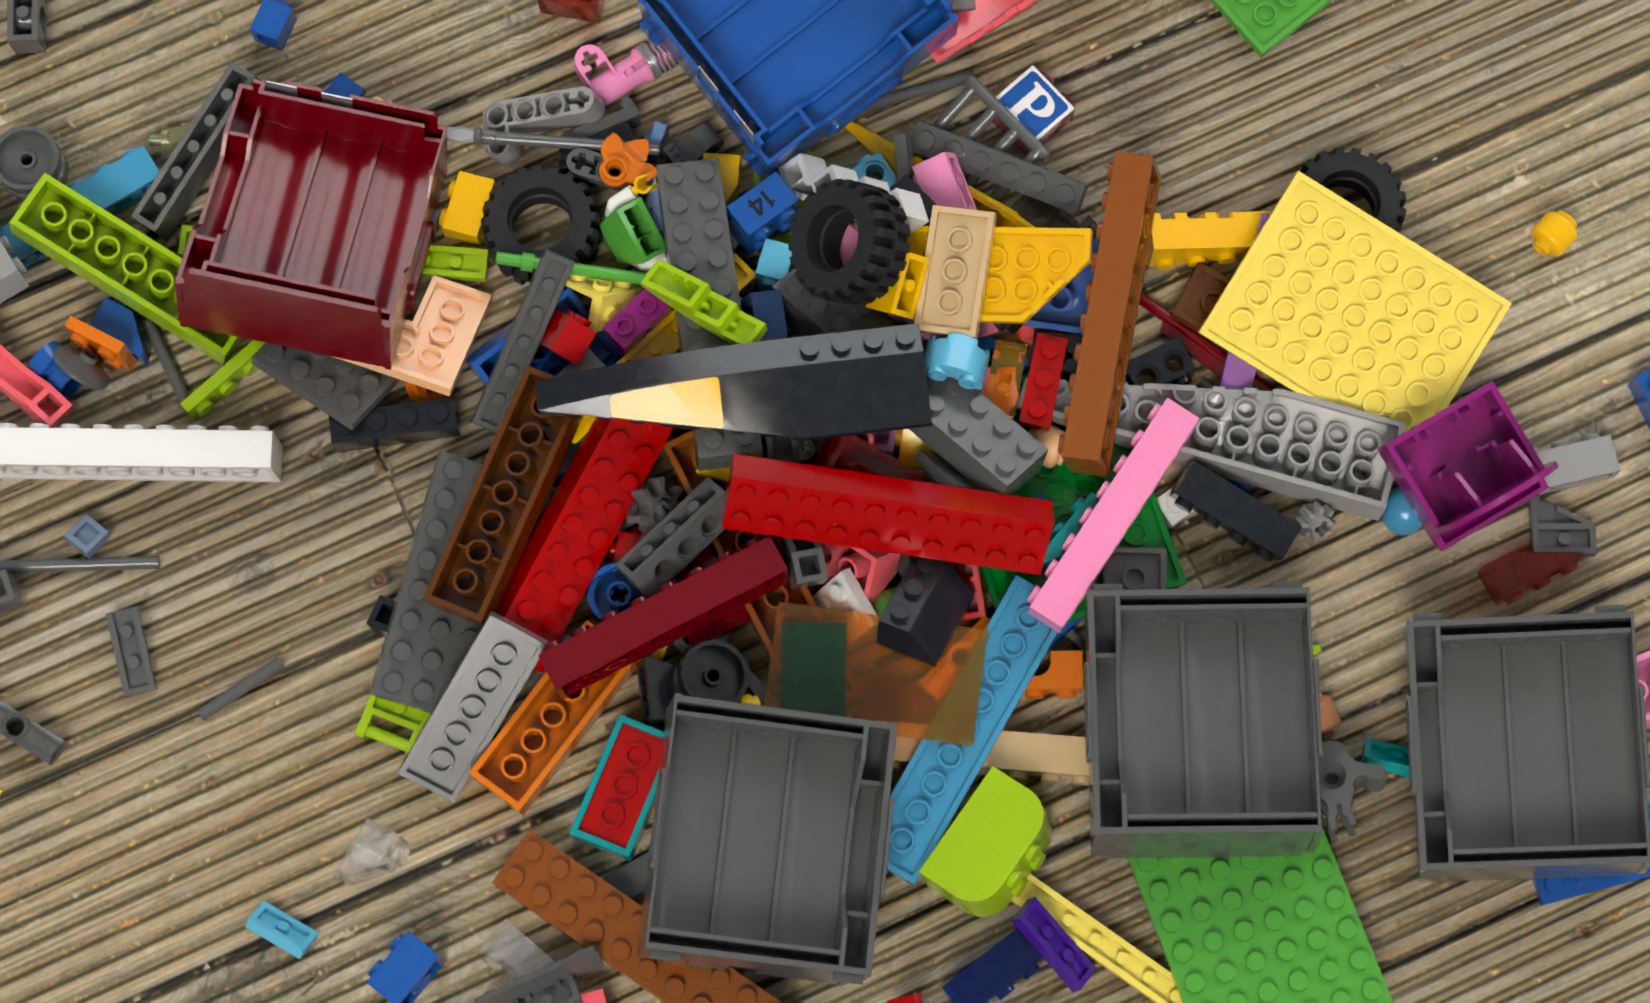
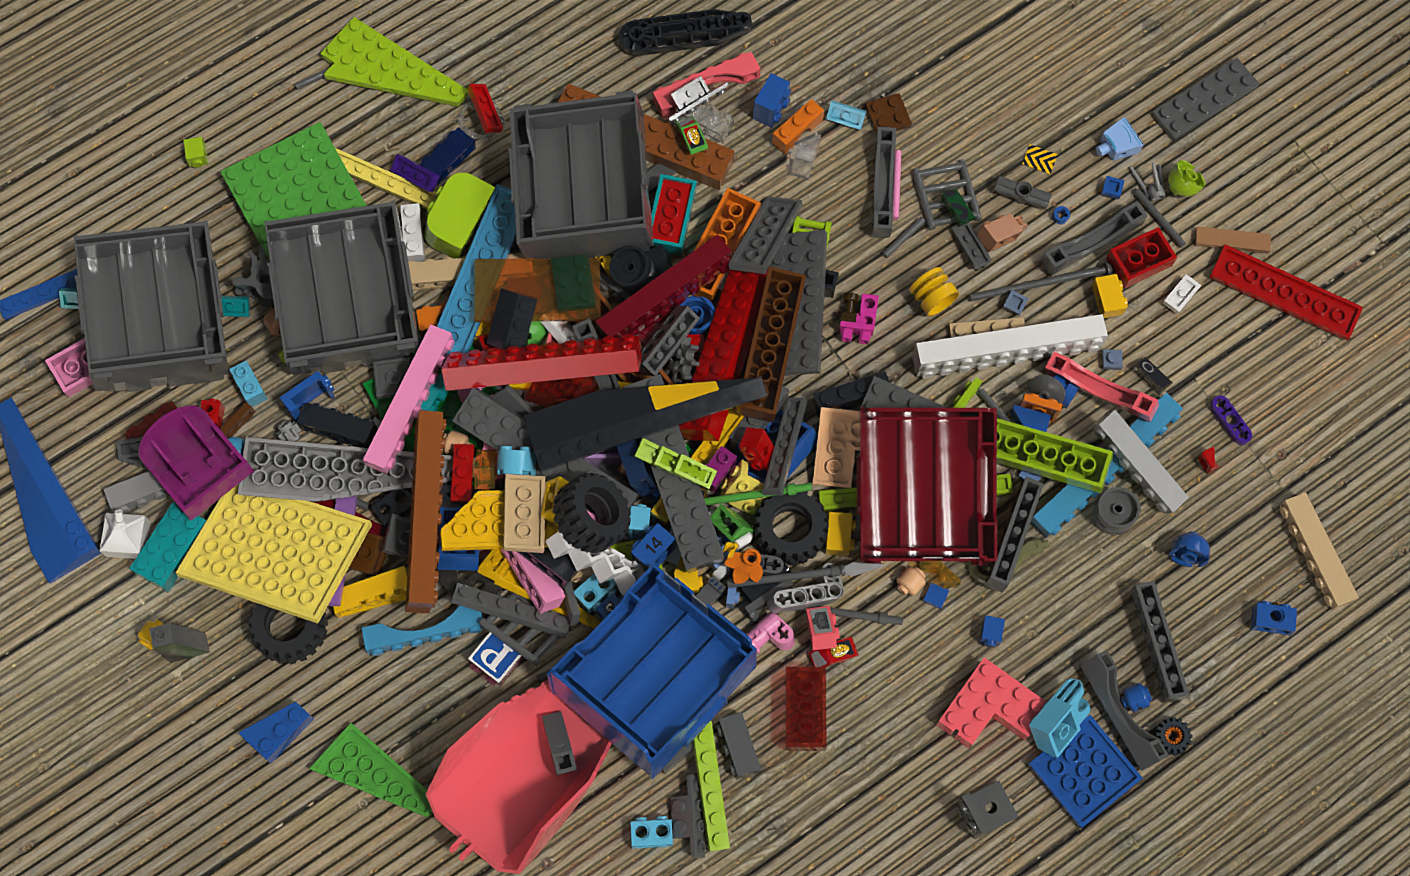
camera: 165 degrees right, 5 degrees down
(73, 660) = (1001, 231): none -> nougat brick
(135, 719) = (957, 206): none -> dark green slope
(146, 501) = (977, 327): none -> tan plate
(185, 768) = (923, 190): none -> dark grey bar
(208, 922) = (888, 113): none -> reddish brown plate
(215, 568) = (934, 291): none -> yellow wheel
(228, 788) = (896, 184): none -> bright pink bar
(261, 748) = (883, 182): none -> dark grey arch
(351, 544) = (858, 323): none -> dark pink hips
(360, 925) = (805, 118): none -> orange arch
(435, 74) = (882, 618): none -> dark grey bar
(514, 30) = (843, 652): none -> slope
(529, 63) = (822, 628): none -> coral brick
(560, 912) = (692, 135): none -> slope
(843, 149) = (608, 605): none -> blue brick
(1071, 834) = (413, 232): none -> white brick
(1158, 310) = (397, 536): none -> dark grey plate
(1198, 170) = (383, 638): none -> dark azure arch
(1307, 559) = (306, 392): none -> blue panel
(1374, 613) = (248, 384): none -> medium azure brick
(1375, 58) = (277, 731): none -> blue wedge
(1398, 554) = (233, 425): none -> reddish brown hinge
(1439, 574) = (215, 410): none -> red brick
(1514, 199) = (178, 642): none -> dark grey slope
(1525, 355) = (167, 548): none -> teal brick
(1589, 395) = (124, 534): none -> white piece

